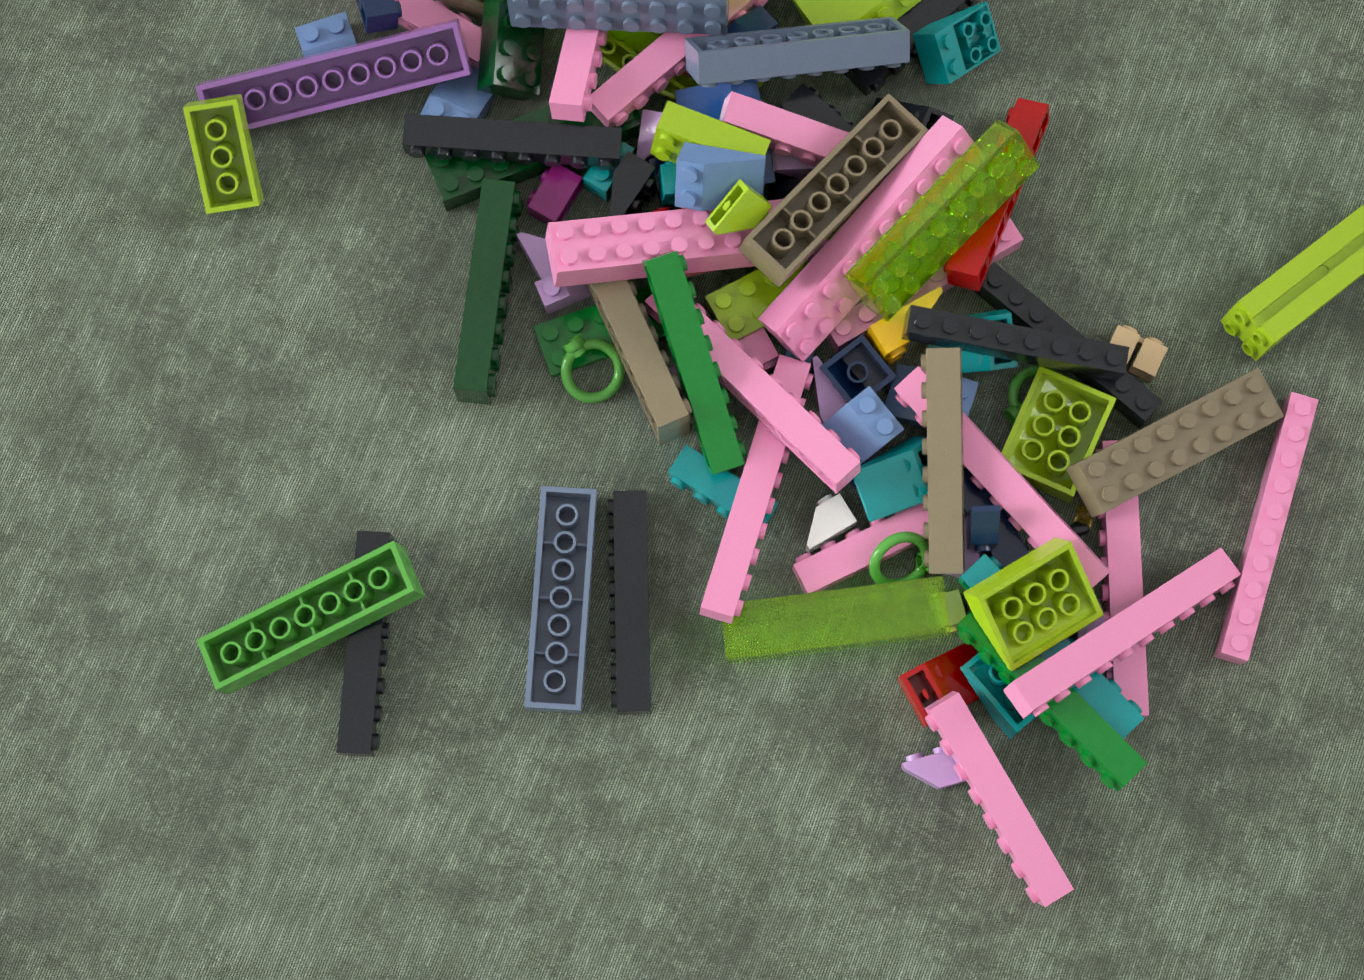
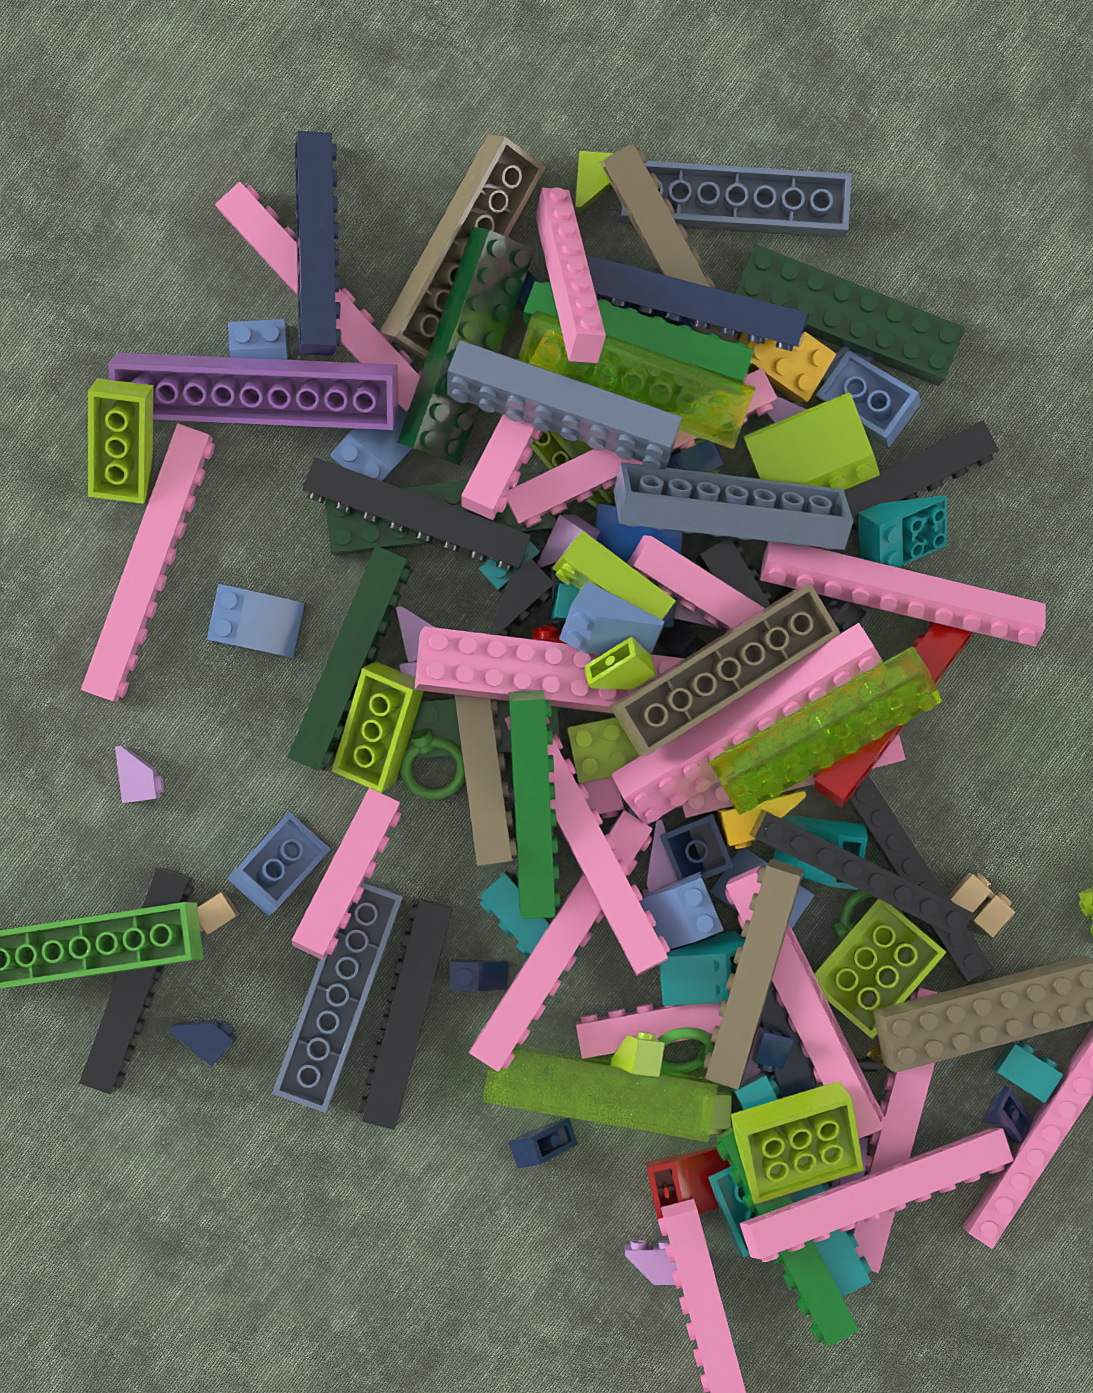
camera: 10 degrees right, 10 degrees up
(276, 263) = (147, 563): none -> bright pink brick
(318, 456) = (136, 777): none -> lavender slope
(390, 285) = (255, 621): none -> medium blue slope
(426, 559) = (216, 913): none -> tan brick
(447, 678) = (205, 1038): none -> dark blue slope
(471, 499) = (278, 864): none -> medium blue slope
(530, 341) = (378, 727): none -> lime brick
(538, 479) = (346, 874): none -> bright pink brick
(554, 195) = (446, 574): magenta brick -> none
(687, 548) = (478, 975): none -> dark blue slope
(794, 687) = (543, 1143): none -> dark blue slope
(829, 521) = (623, 990): white slope -> none
(861, 567) = (640, 1054): none -> lime slope
(977, 90) = (905, 592): none -> bright pink brick
(1222, 532) = (1010, 1114): none -> dark blue slope
(1227, 491) = (1028, 1071): none -> teal brick

